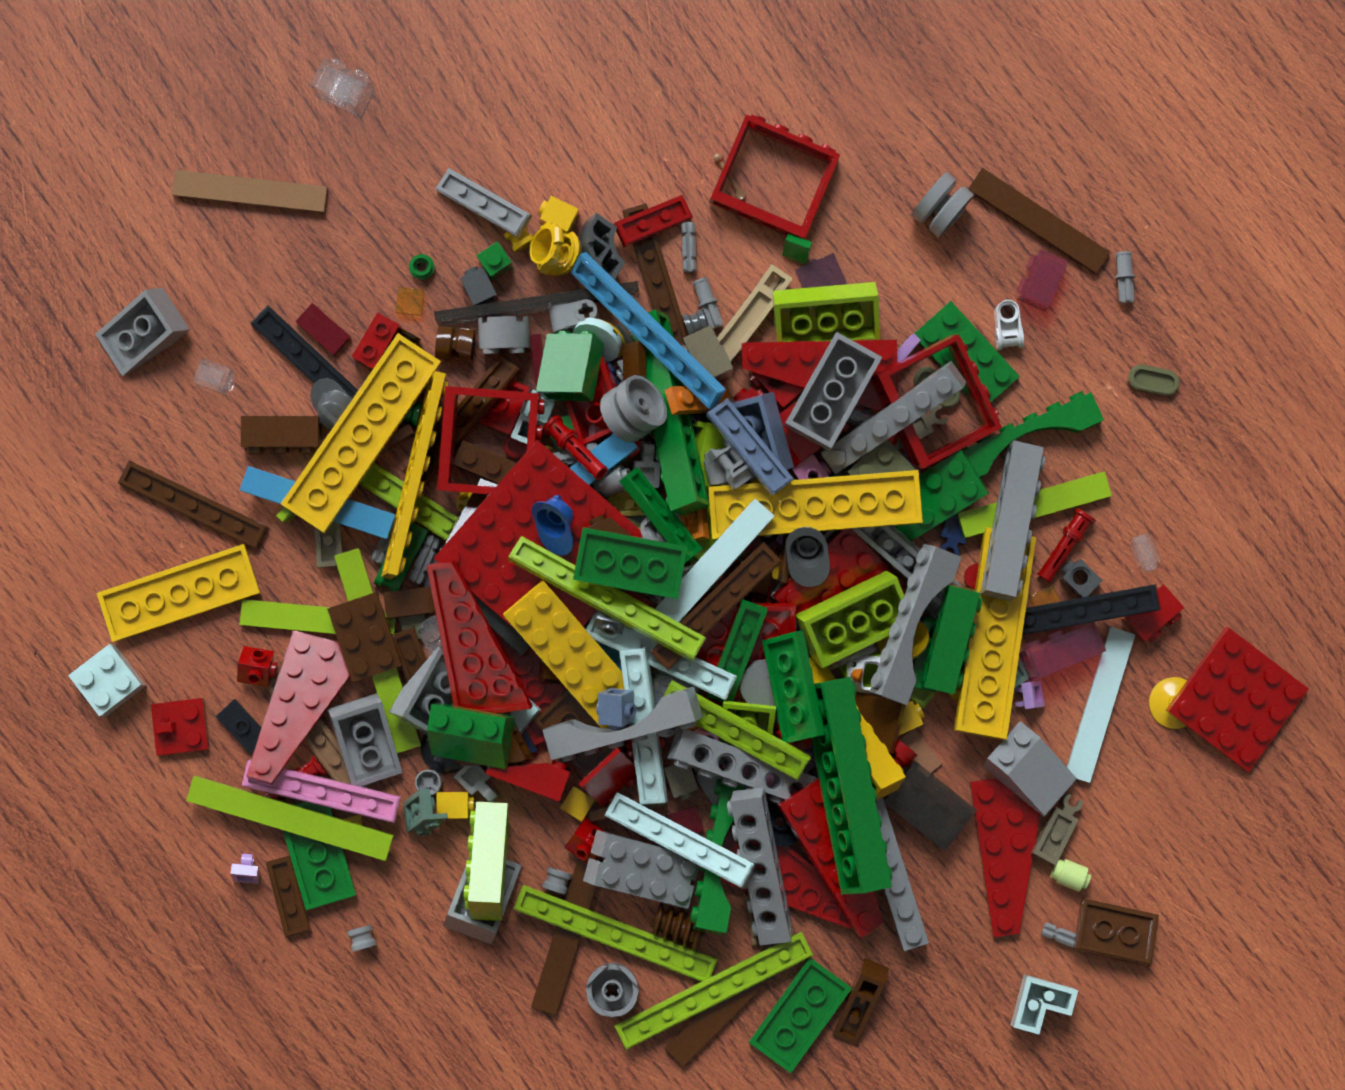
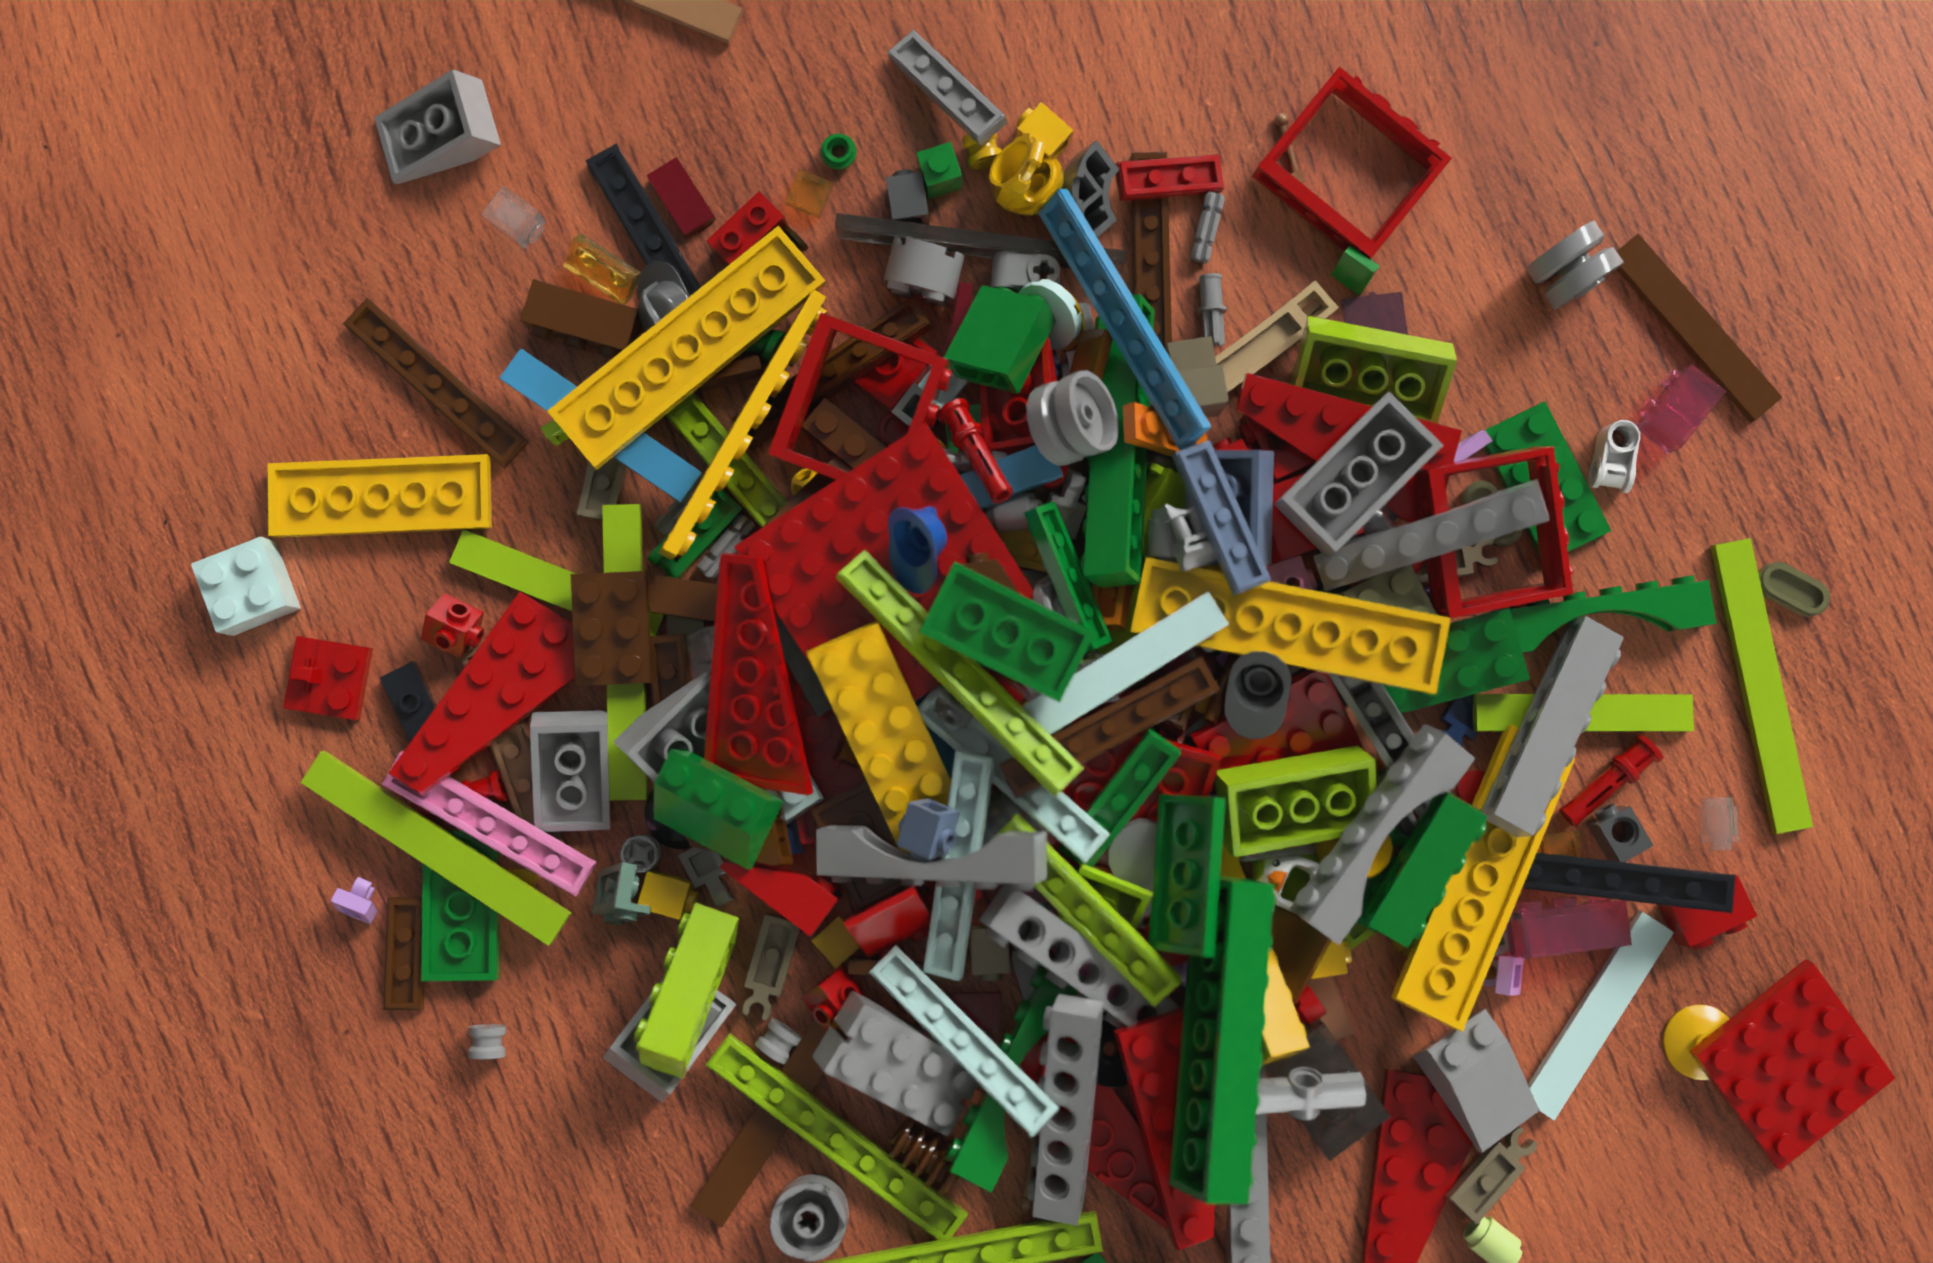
camera: 15 degrees right, 0 degrees up
(284, 395) = (602, 269): none -> clear yellow plate
(455, 344) = (852, 266): reddish brown wheel -> none
(537, 829) = (770, 962): none -> dark tan plate
(694, 322) = (1187, 328): dark grey wheel -> none
(915, 808) = (1309, 1092): none -> light grey piece
(1125, 277) = (1793, 436): light grey axle -> none
(1149, 451) = (1761, 686): none -> lime tile

